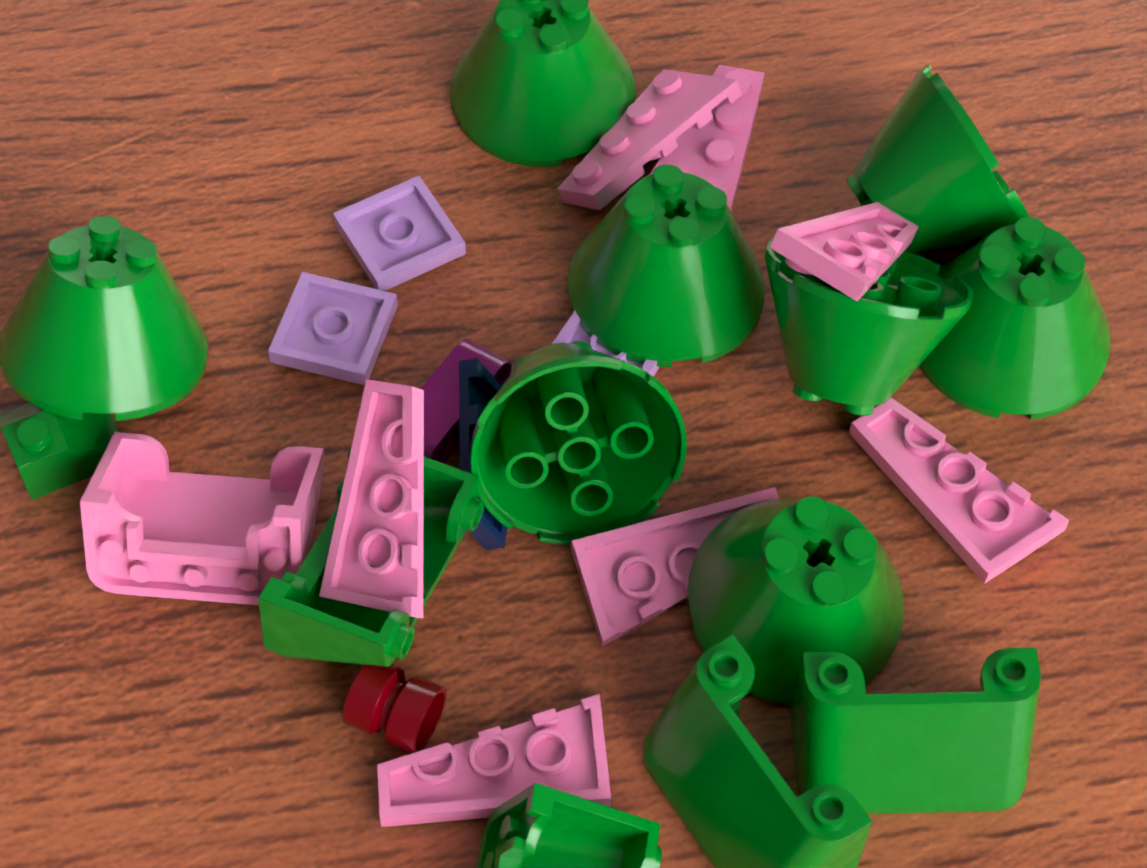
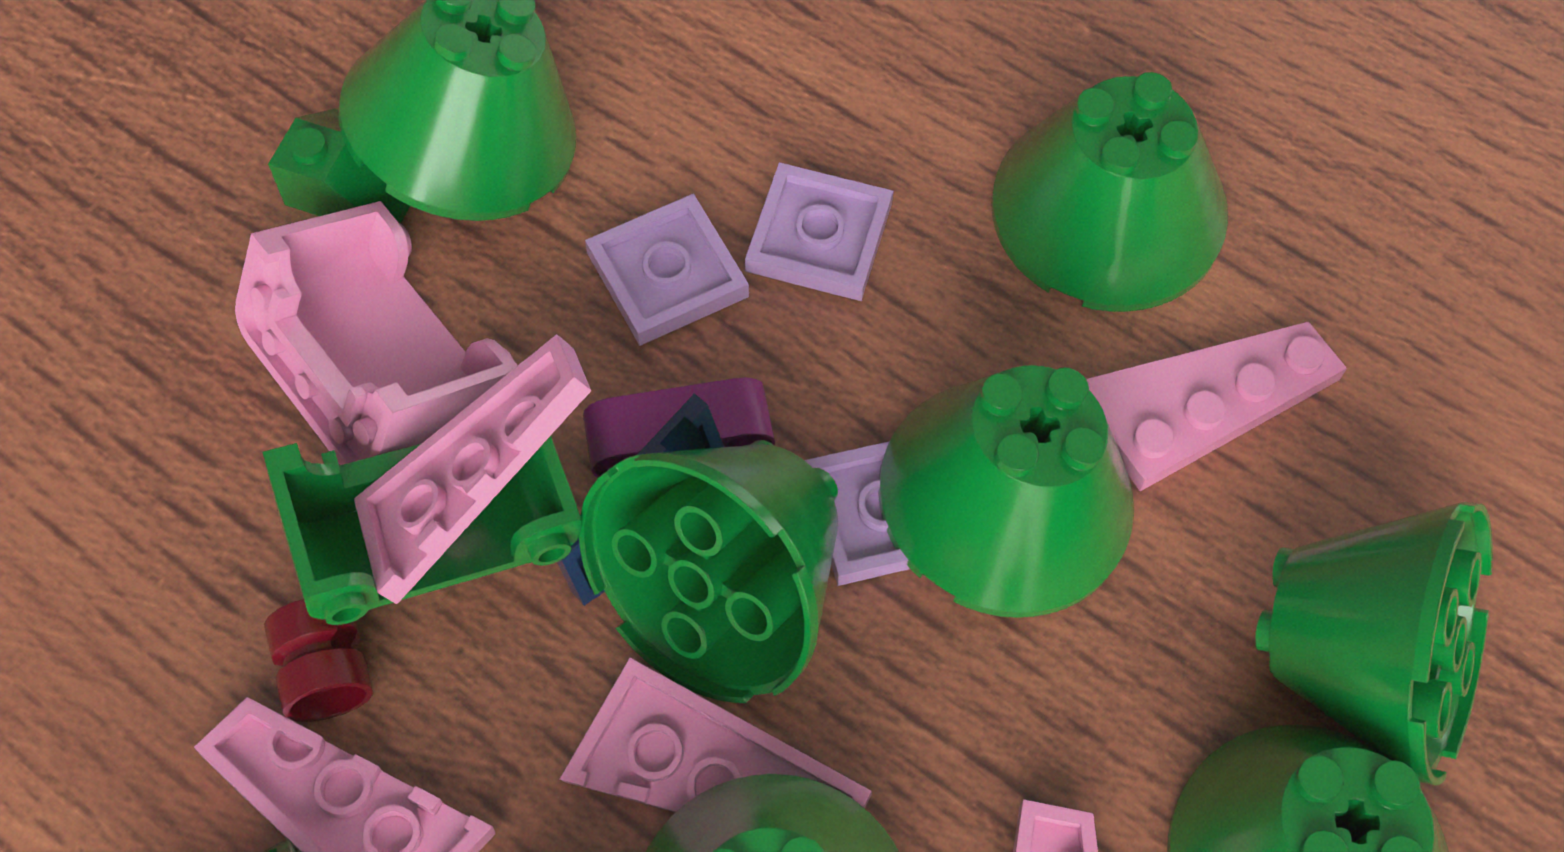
camera: 45 degrees right, 5 degrees up
(645, 133) = (1186, 323): bright pink wing -> none
(846, 247) = (1158, 624): bright pink wing -> none
(867, 346) = (1133, 693): green cone -> none

